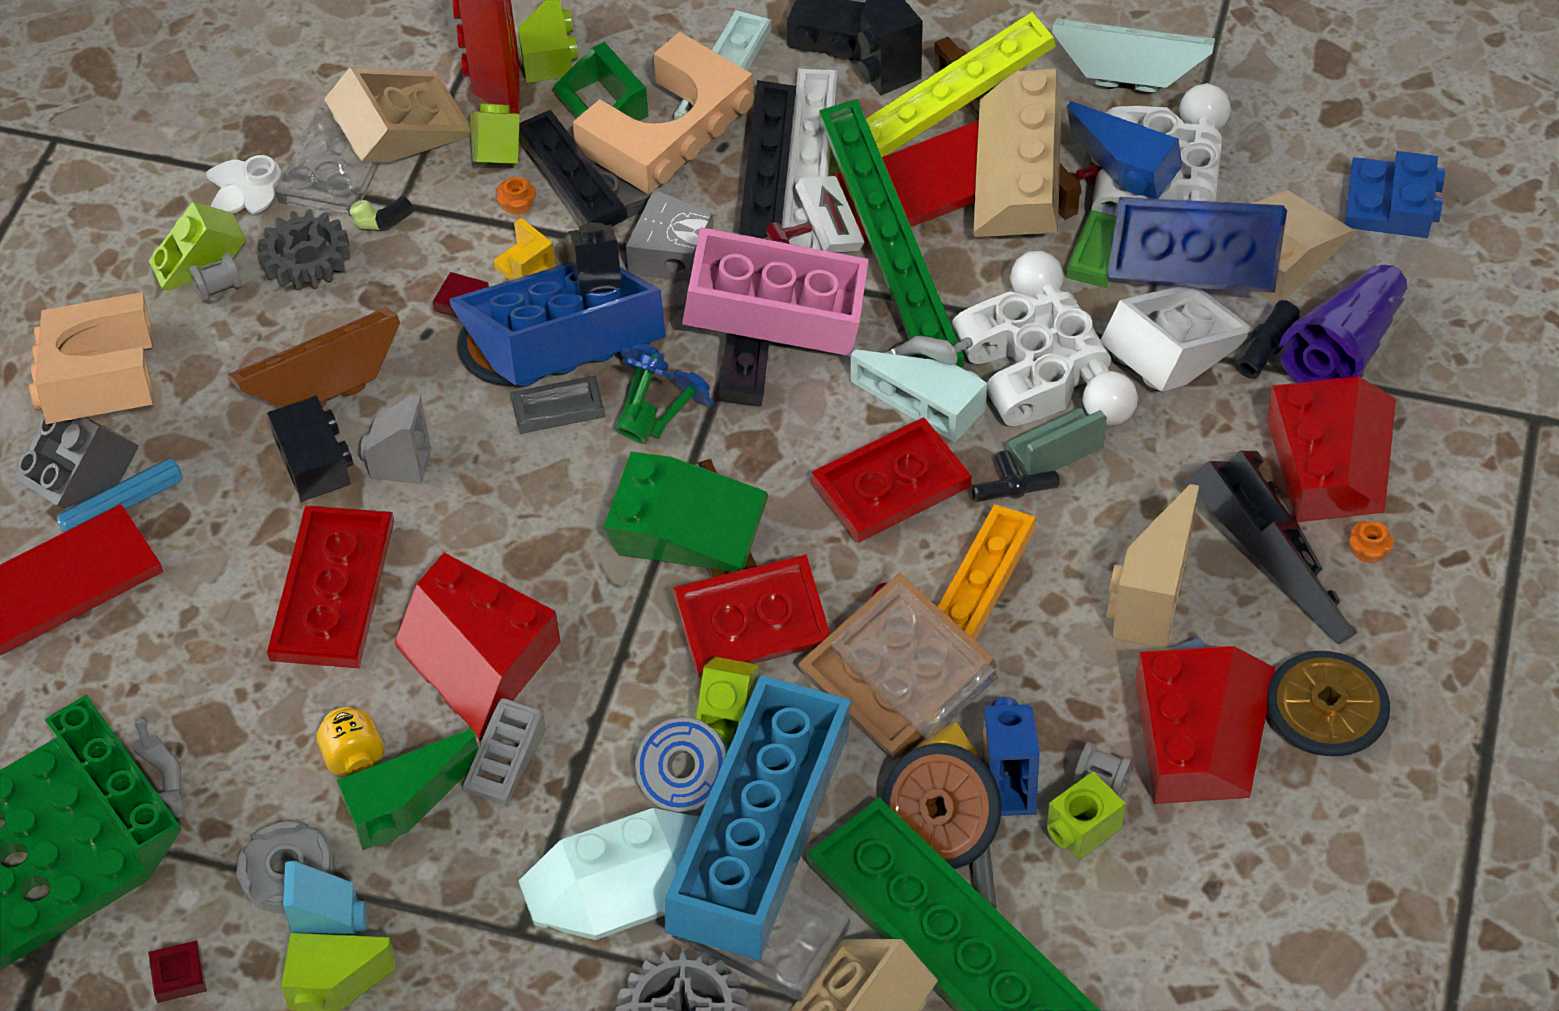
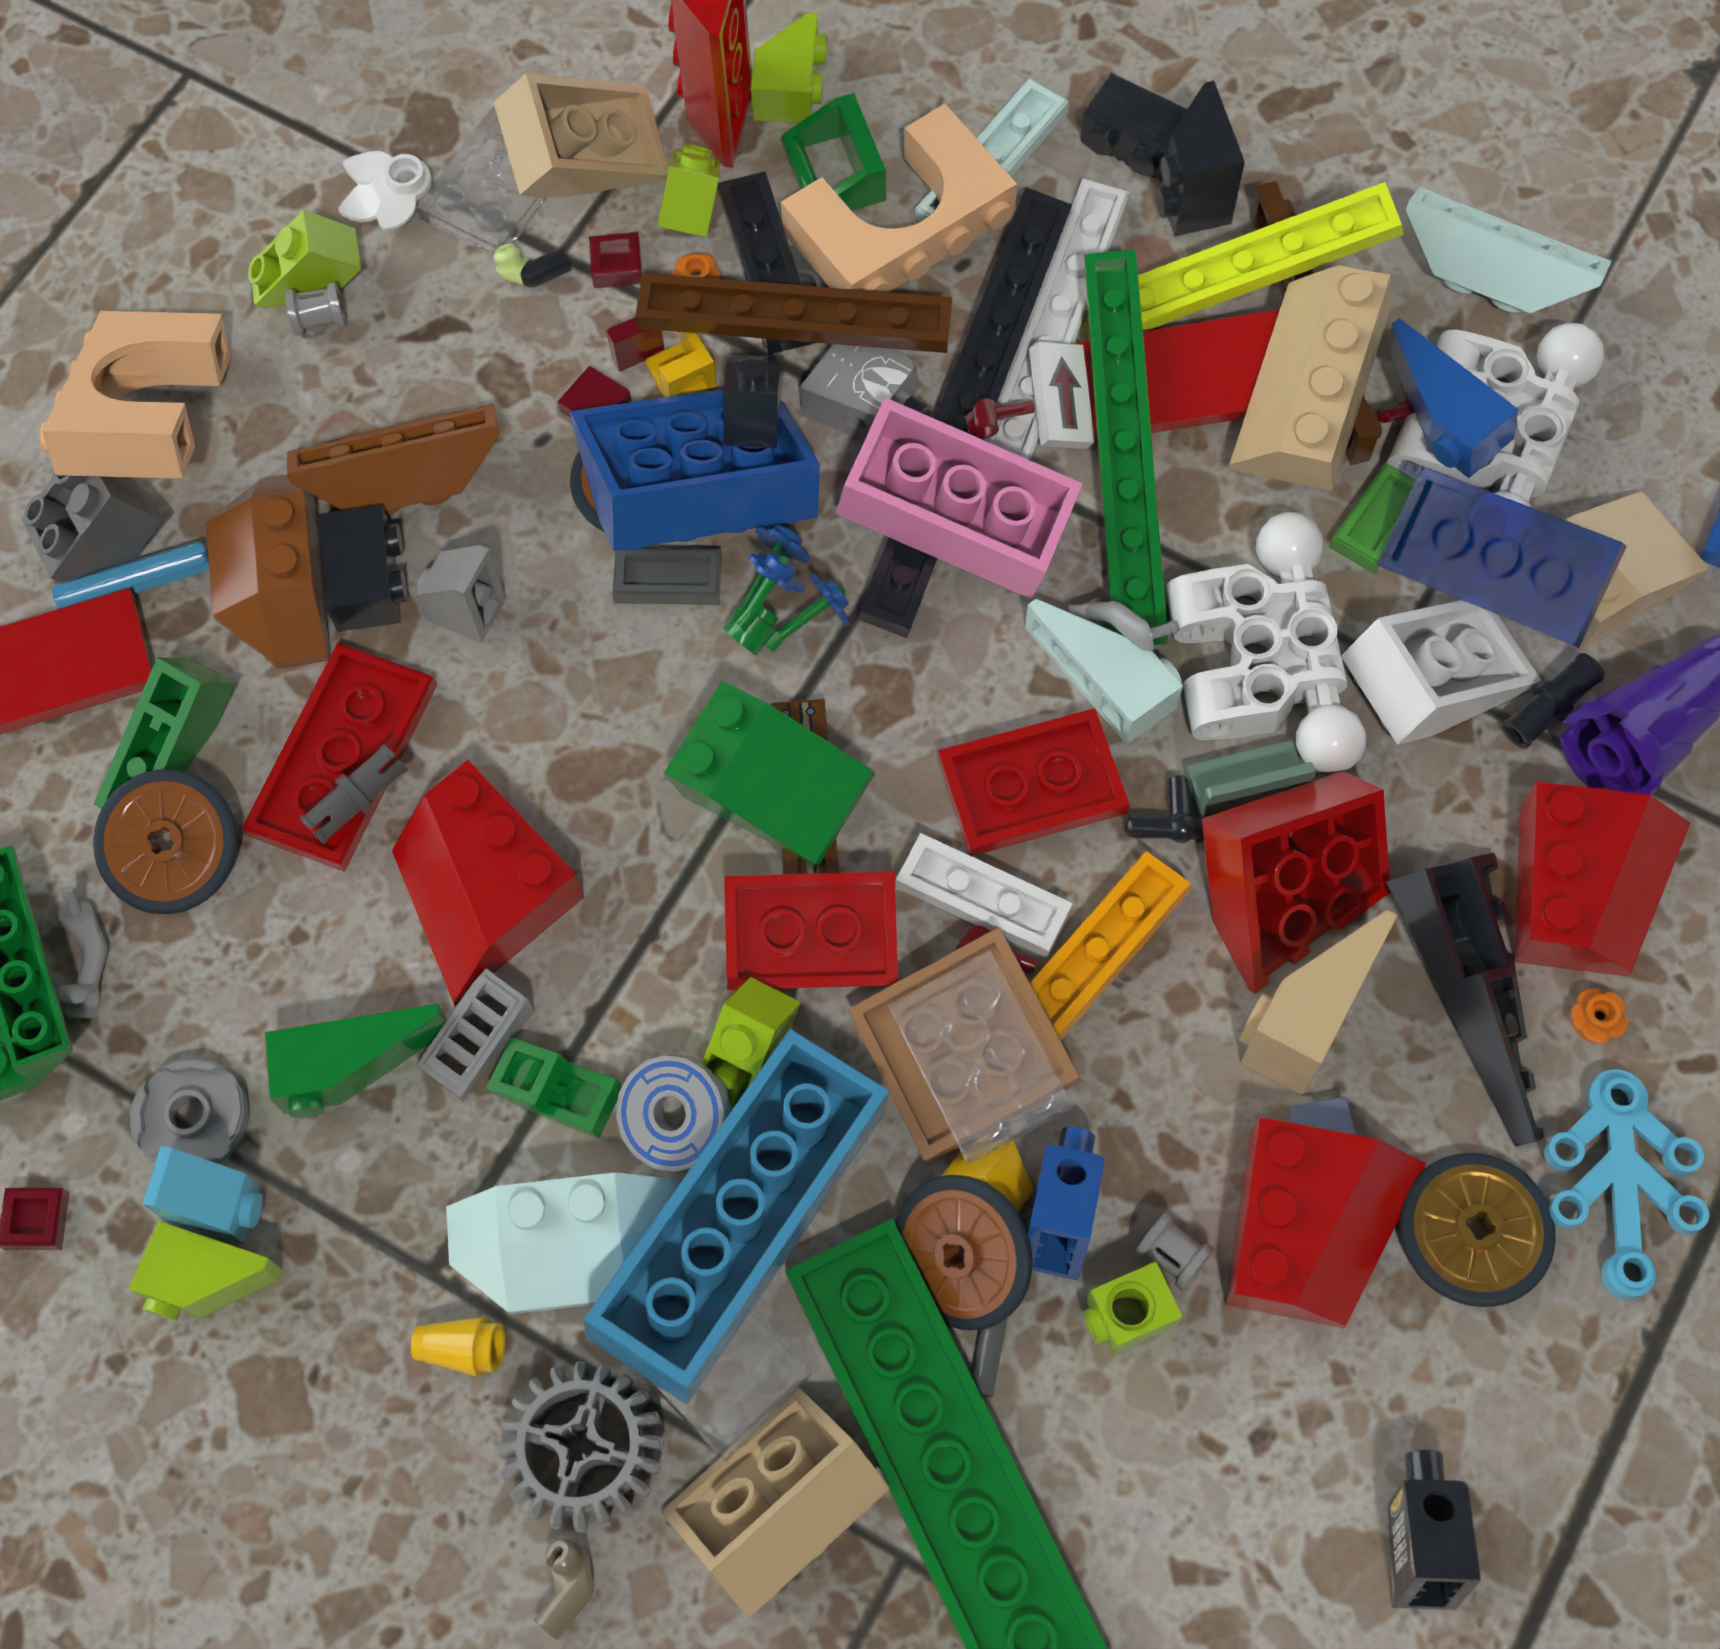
camera: 15 degrees right, 15 degrees up
(183, 601) = (169, 721): none -> green slope
(221, 699) = (132, 857): none -> dark orange wheel
(236, 468) = (270, 572): none -> dark orange wedge
(304, 249) = (426, 295): dark grey gear -> none
(349, 741) = (301, 976): yellow head -> none
(355, 601) = (353, 794): none -> dark grey pin
(447, 197) = (615, 259): none -> dark red tile
(482, 246) = (633, 345): none -> dark red tile
(562, 971) = (461, 1345): none -> yellow cone
(573, 777) = (554, 1087): none -> green slope
(607, 193) = (794, 312): none -> reddish brown plate
(877, 562) = (983, 895): none -> white plate
(1109, 490) = (1294, 869): none -> red wedge
(1362, 912) = (1431, 1537): none -> black torso
(1426, 639) = (1626, 1174): none -> medium azure plant

